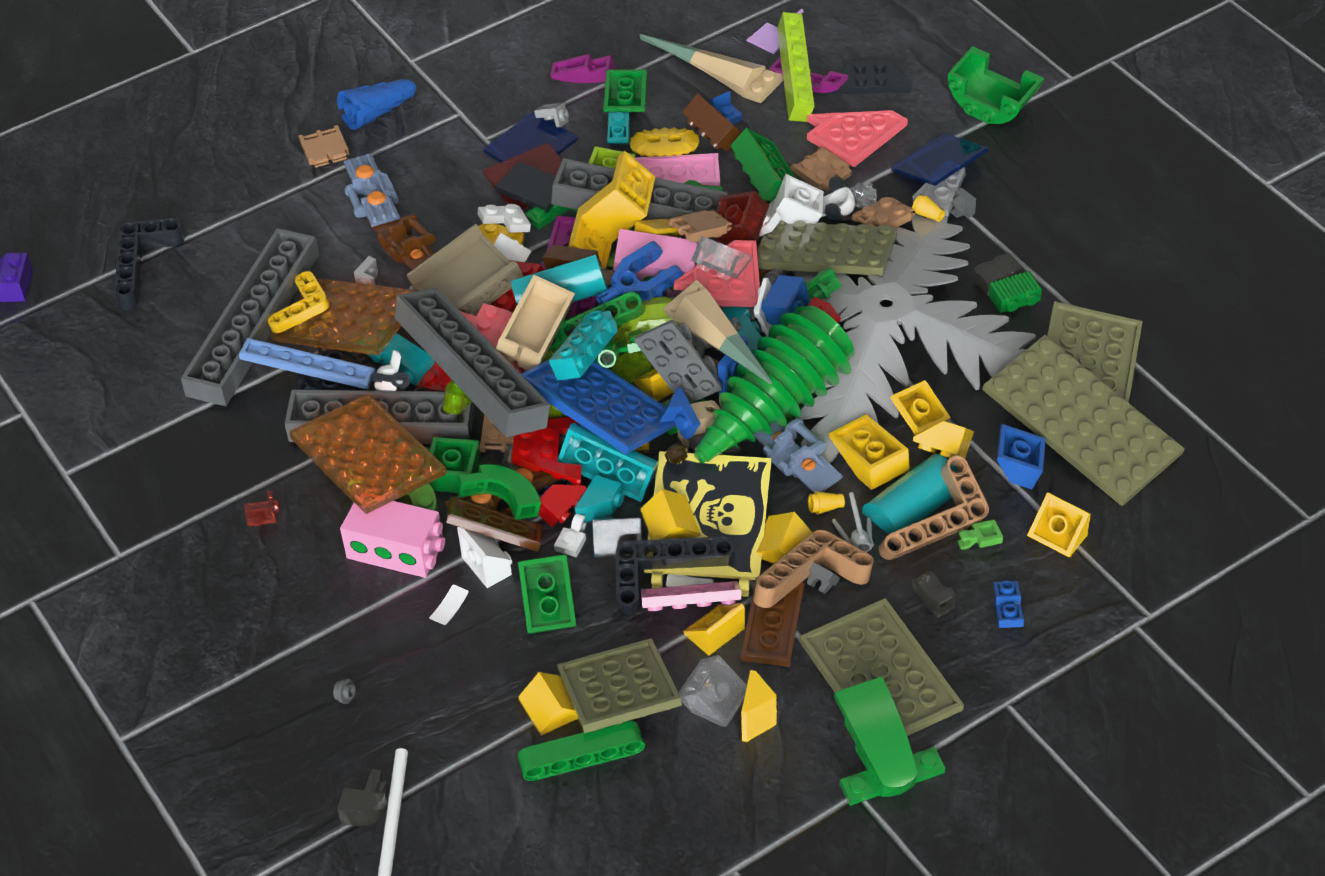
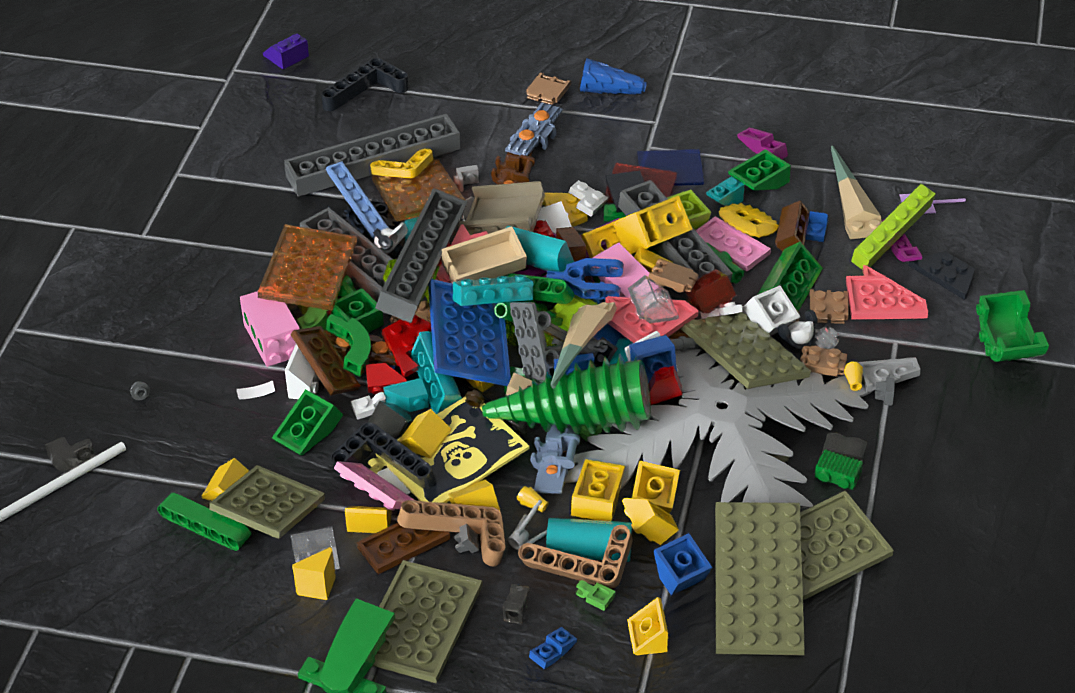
camera: 45 degrees right, 5 degrees down
(262, 512) = (234, 266): clear red bracket -> none
(553, 111) = (705, 157): light grey bracket -> none
(682, 414) = (504, 372): blue slope -> none
(823, 284) = (693, 365): green hips -> none
(939, 159) = (912, 352): clear blue piece -> none

